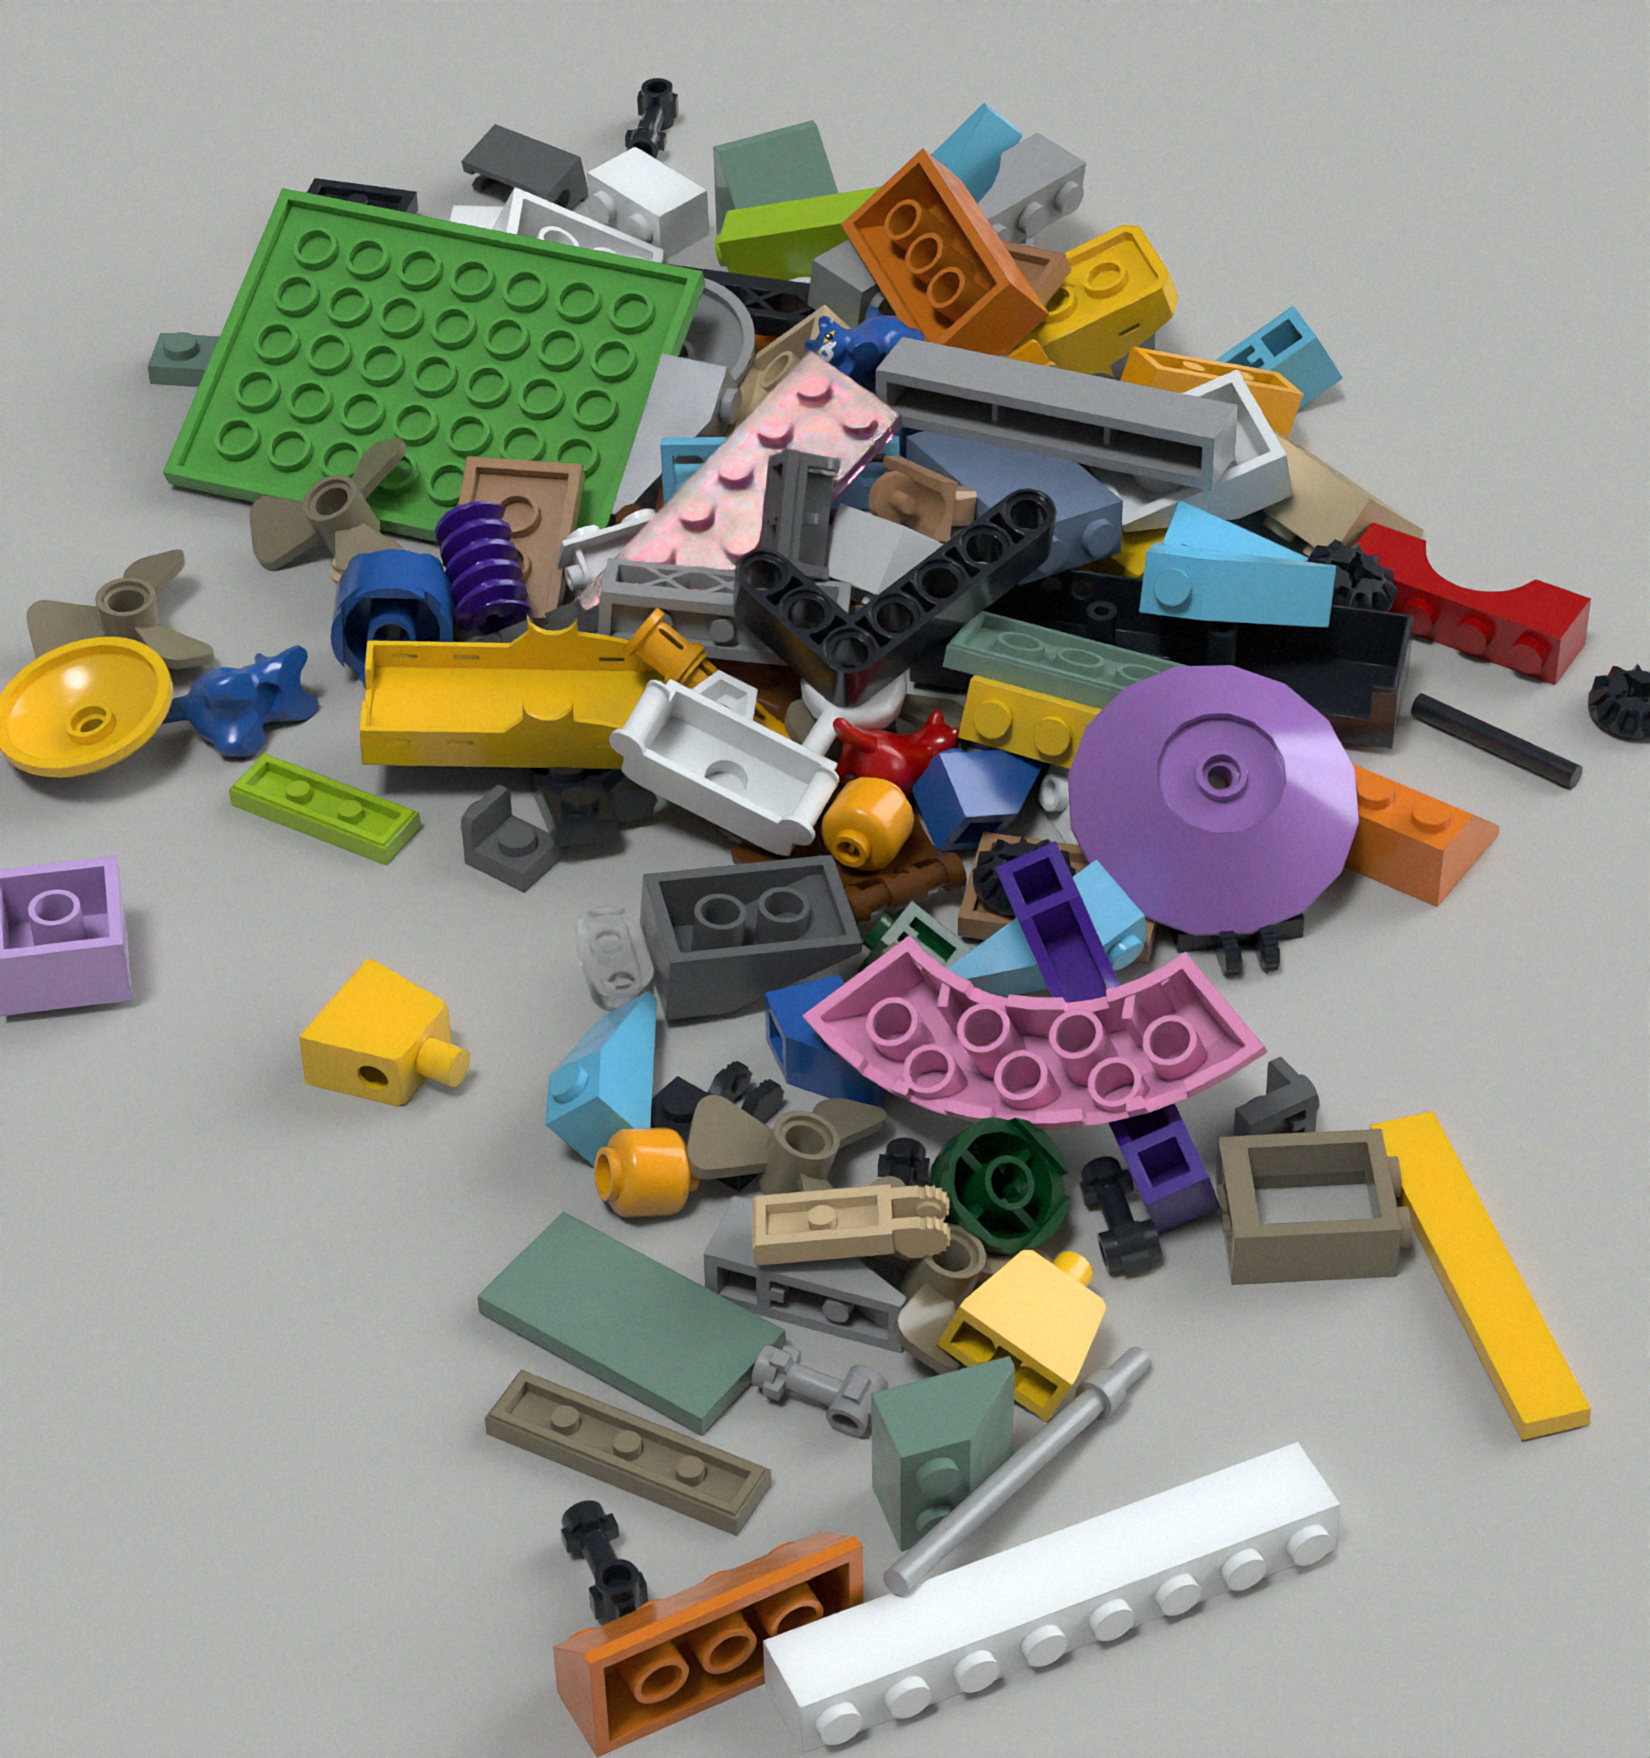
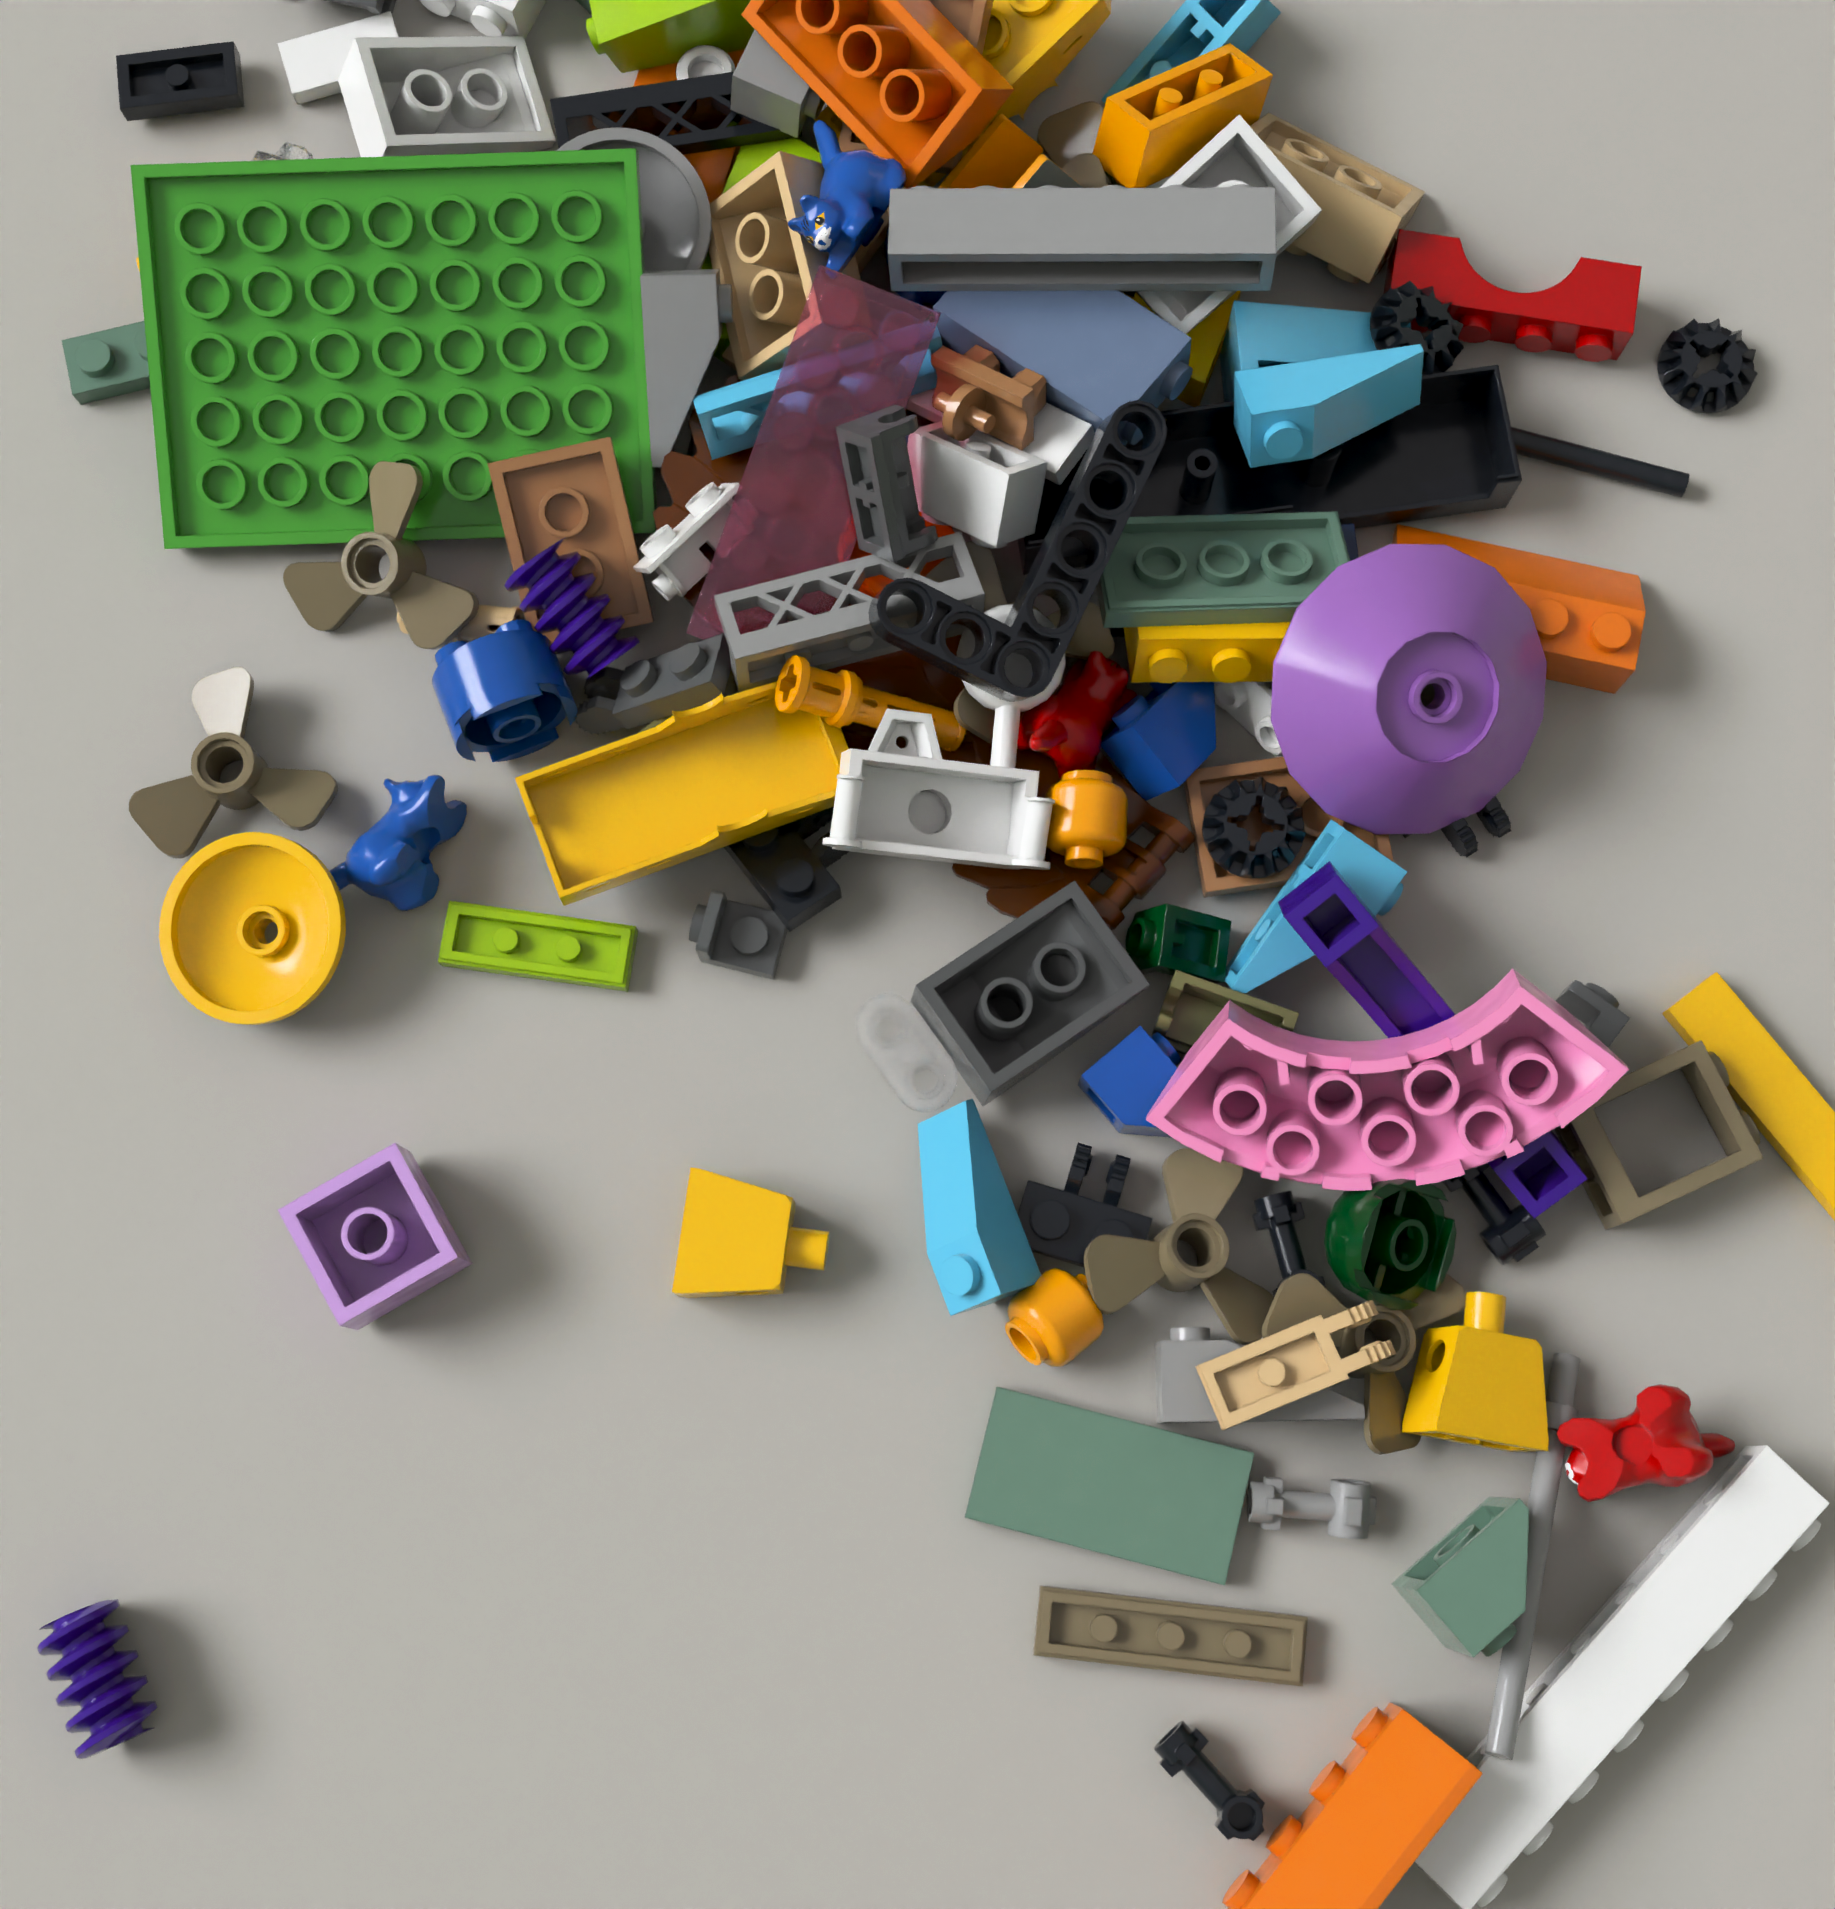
camera: 20 degrees left, 35 degrees up
(1183, 1415) = (1650, 1445): none -> red animal

